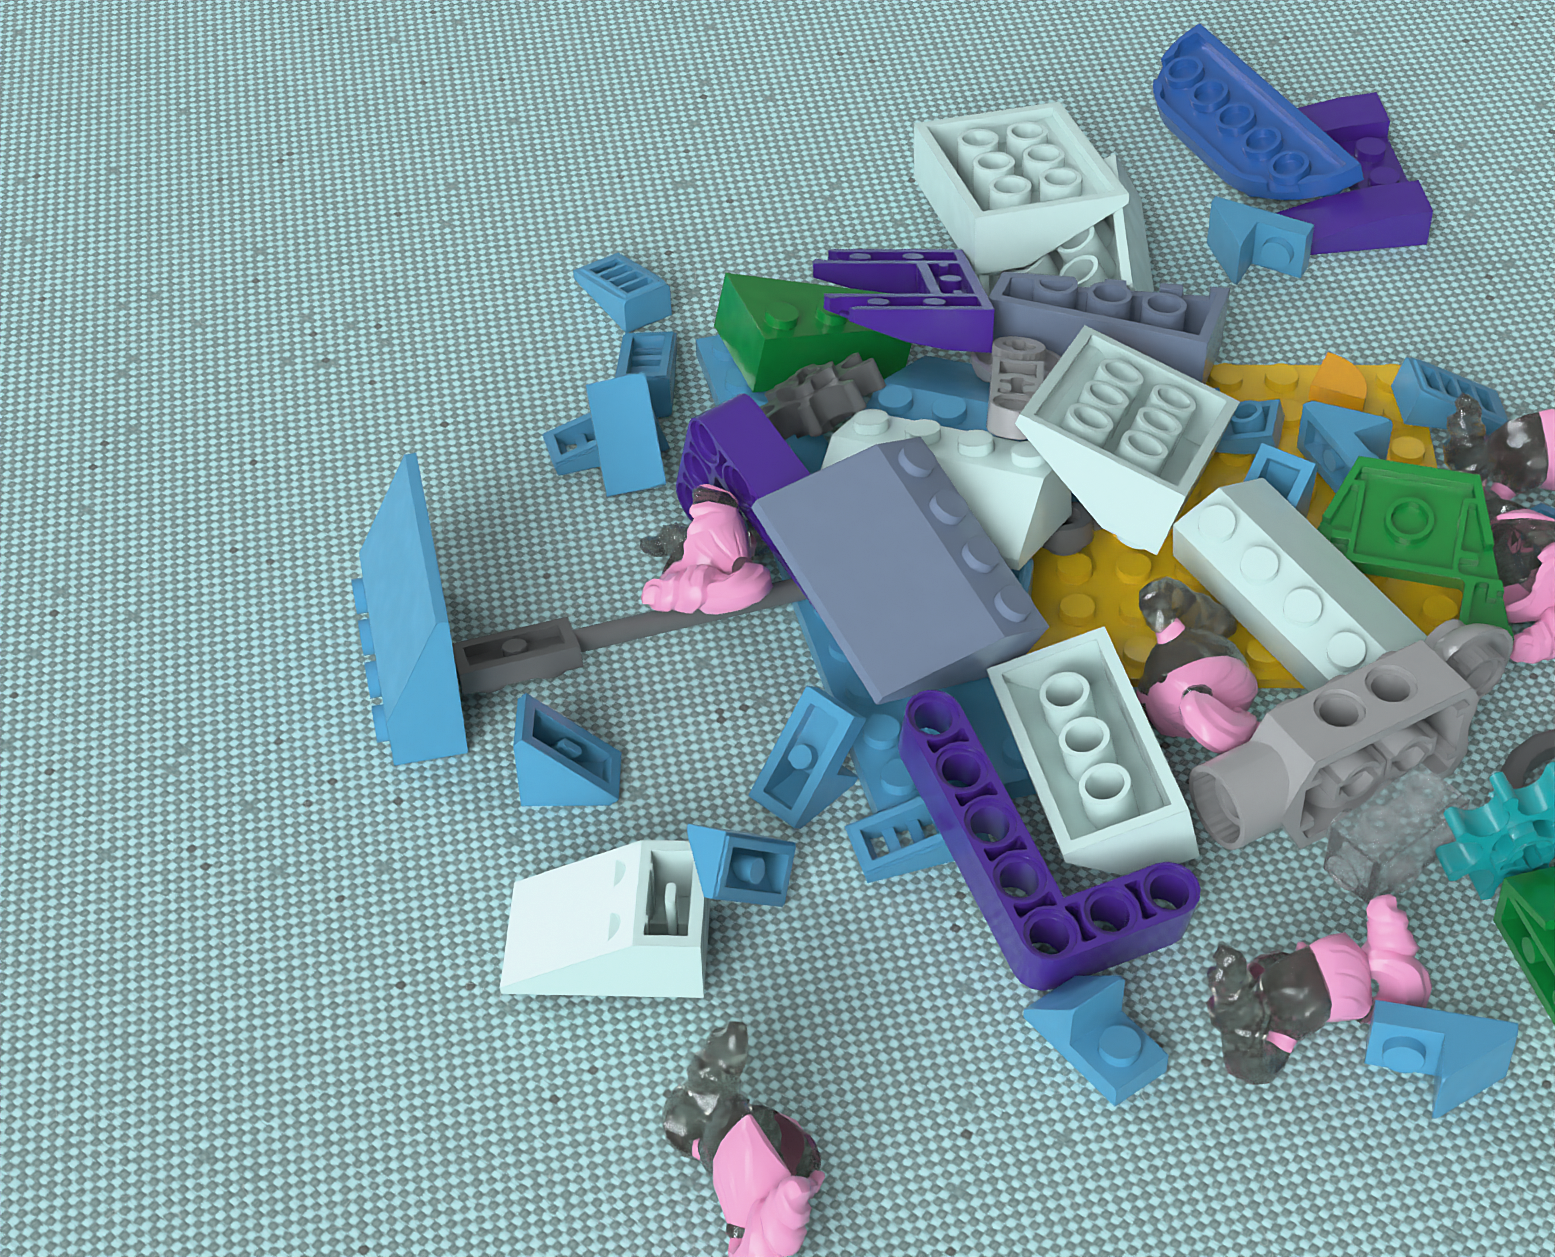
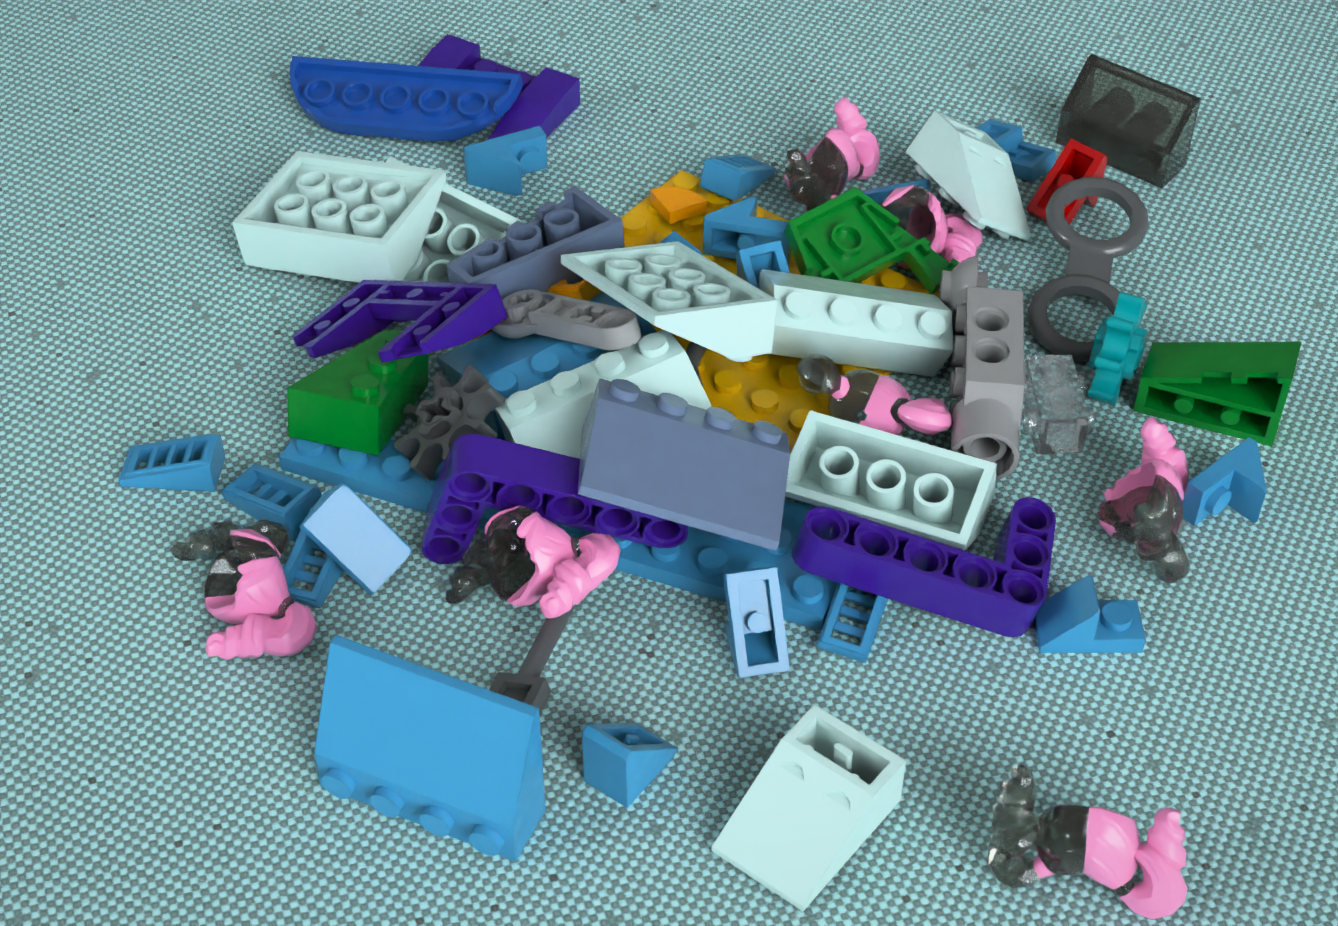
camera: 55 degrees left, 0 degrees up
(539, 393) = (249, 590): none -> bright pink hair
(741, 865) = (835, 697): dark azure slope -> none

